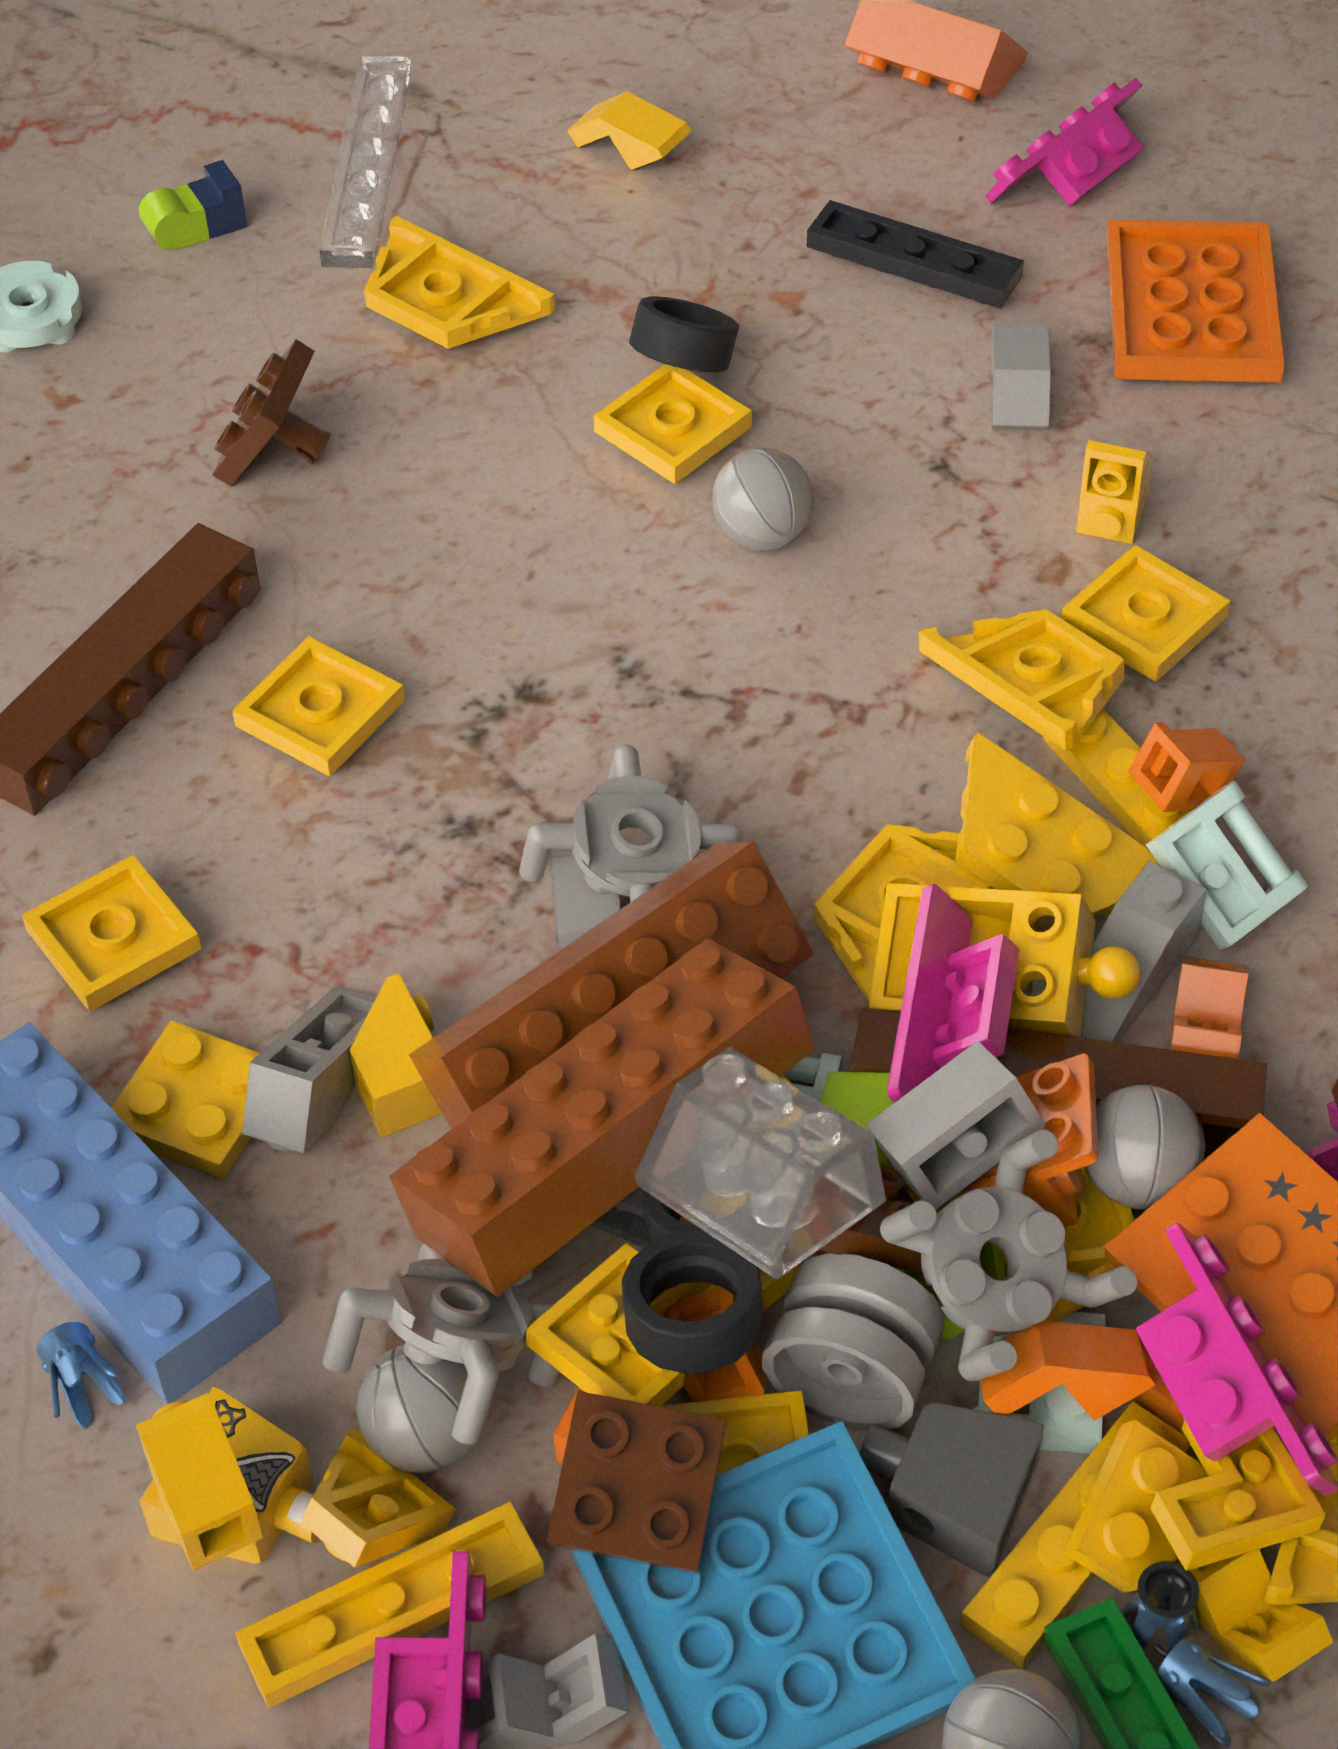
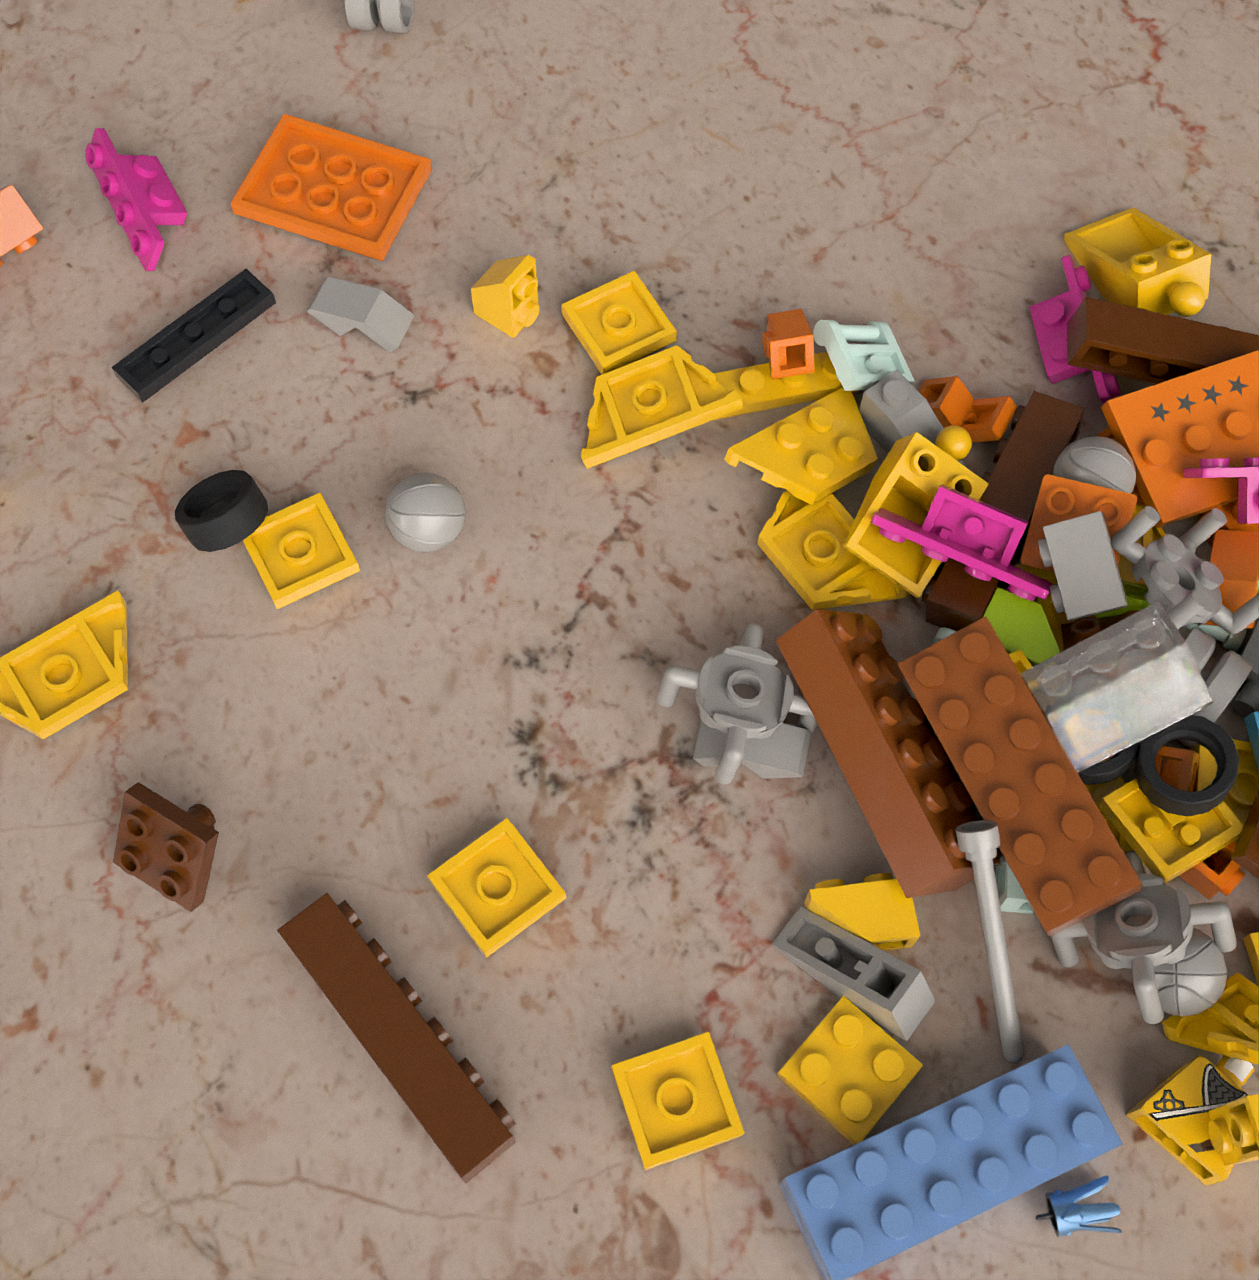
camera: 75 degrees left, 15 degrees up
(483, 1073) = (979, 843): none -> light grey piece

